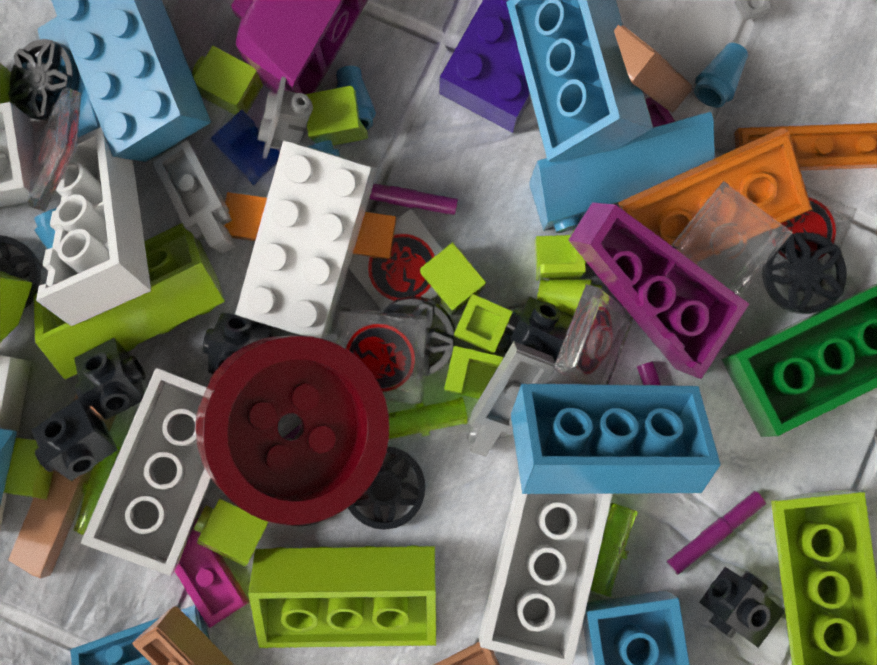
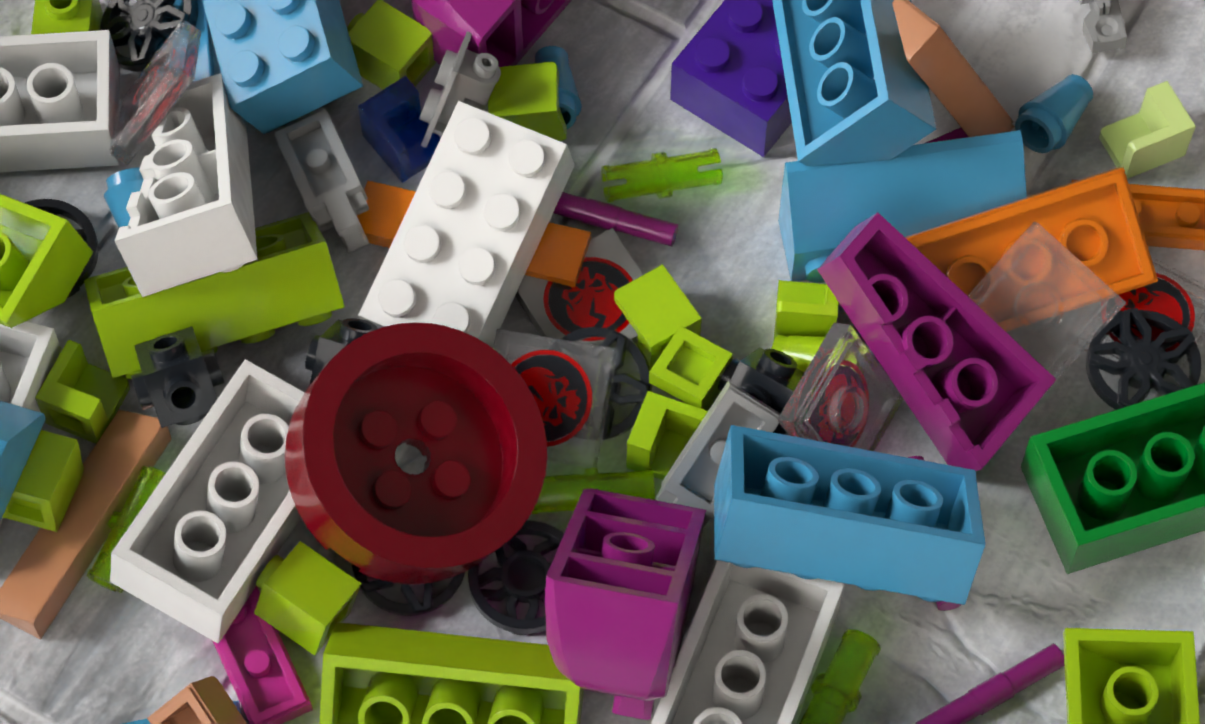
camera: 10 degrees right, 20 degrees down
(42, 389) = (80, 395): none -> lime panel
(73, 440) = (118, 437): black brick -> none
(441, 161) = (661, 175): none -> clear neon green pin
(459, 521) = (622, 596): none -> magenta hips
(791, 83) = (1151, 136): none -> yellowish green panel

